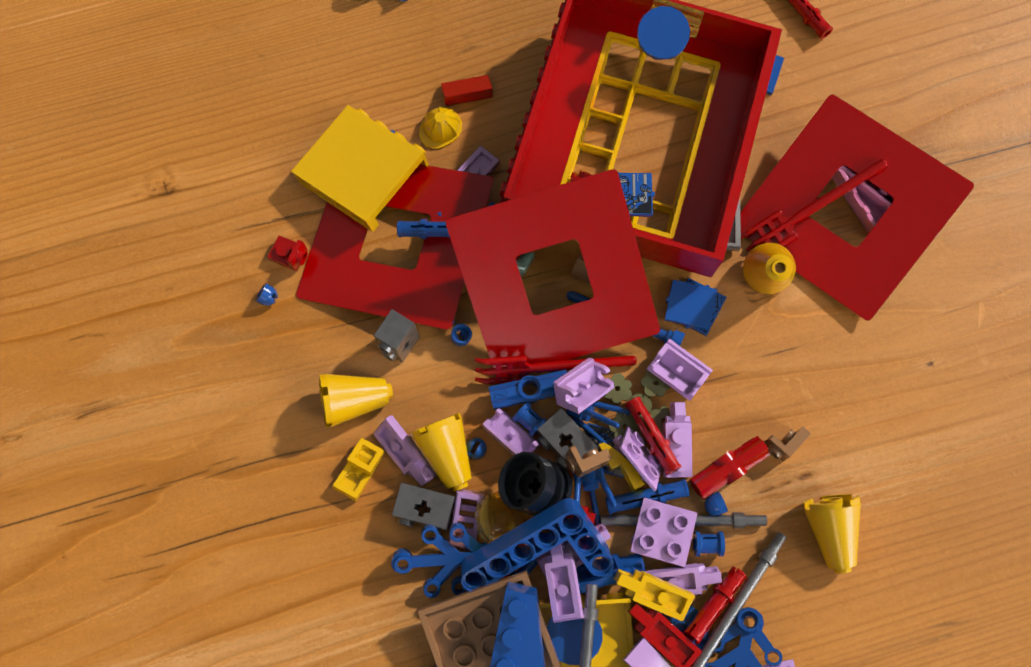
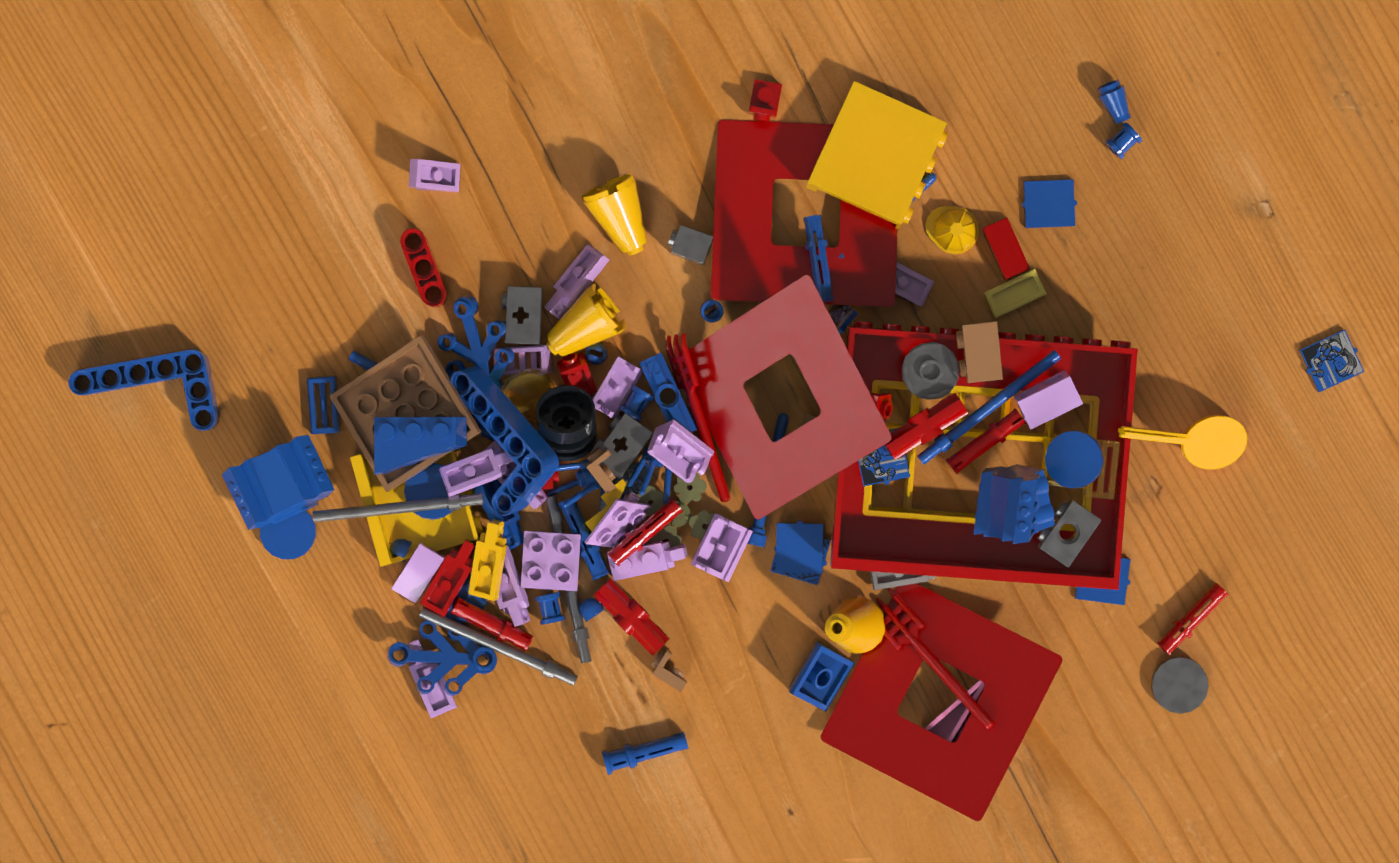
camera: 75 degrees right, 15 degrees up
(266, 295) = (711, 89): blue hinge -> none
(269, 565) = (434, 175): none -> lavender slope
(341, 595) = (417, 255): none -> red beam
(359, 469) = (548, 238): yellow slope -> none
(438, 51) = (1049, 203): none -> blue piece
(487, 468) = (576, 372): none -> red bracket
(506, 90) = (1015, 293): none -> light yellow tile
(551, 87) = (980, 352): none -> medium nougat brick
(558, 135) = (930, 370): none -> flat silver tile
(605, 43) = (1048, 399): none -> lavender hinge
(608, 144) = (925, 426): none -> red piece
(625, 136) = (944, 441): none -> blue bar
(627, 92) = (985, 441): none -> red pin
(696, 81) = (1013, 503): none -> blue slope
(727, 38) = (1067, 549): none -> flat silver brick
(809, 311) = (821, 676): none -> blue slope
(836, 529) = (591, 730): yellow cone -> none
(858, 29) = (1179, 685): none -> flat silver tile
(860, 482) = (631, 755): none -> blue pin

